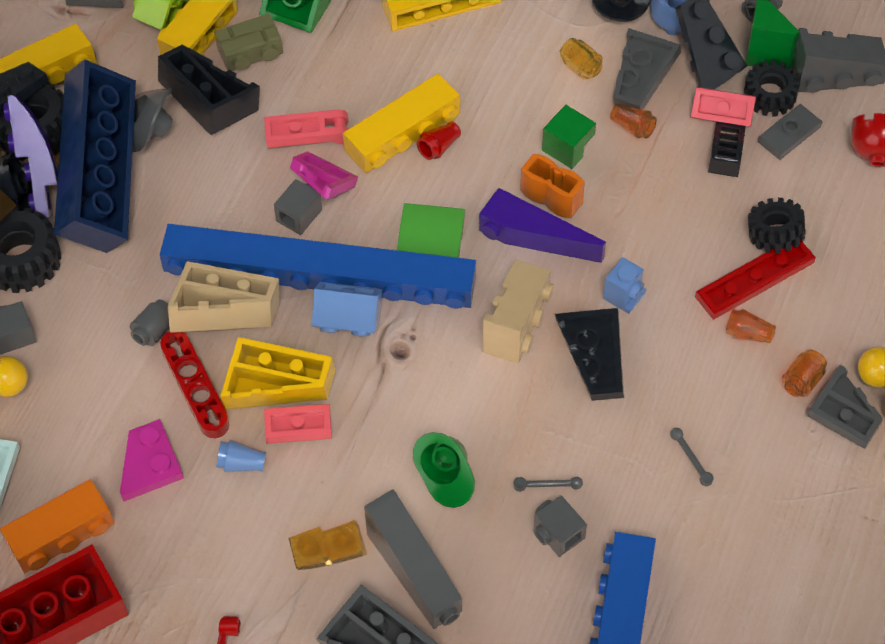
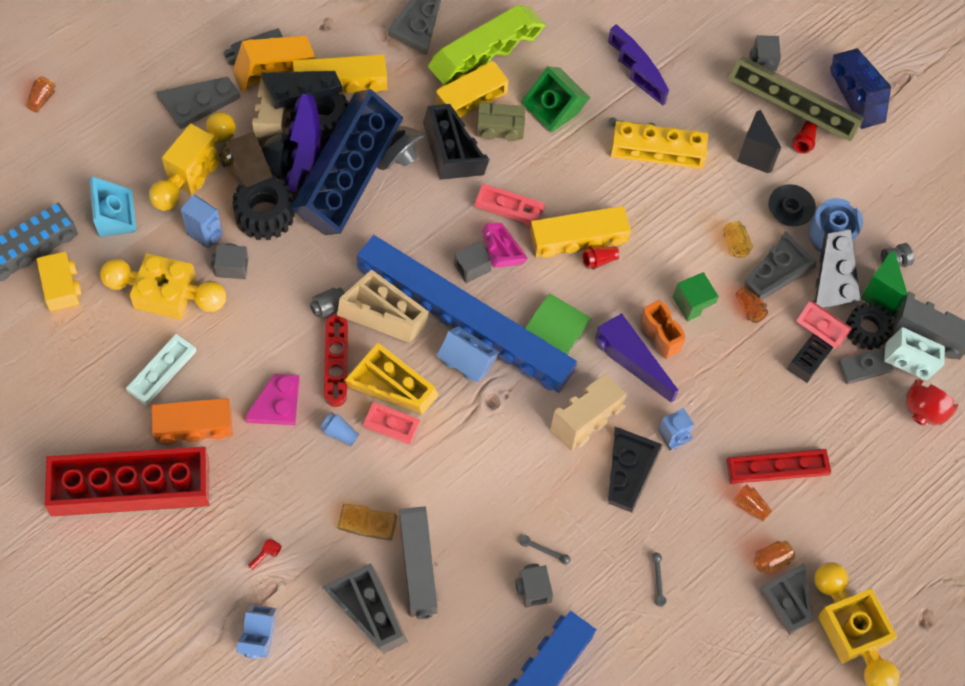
camera: 20 degrees right, 5 degrees up
(444, 469) = (475, 505): green piece -> none
(776, 237) = (816, 424): black tyre -> none
(836, 93) = (914, 353): none -> light aqua brick

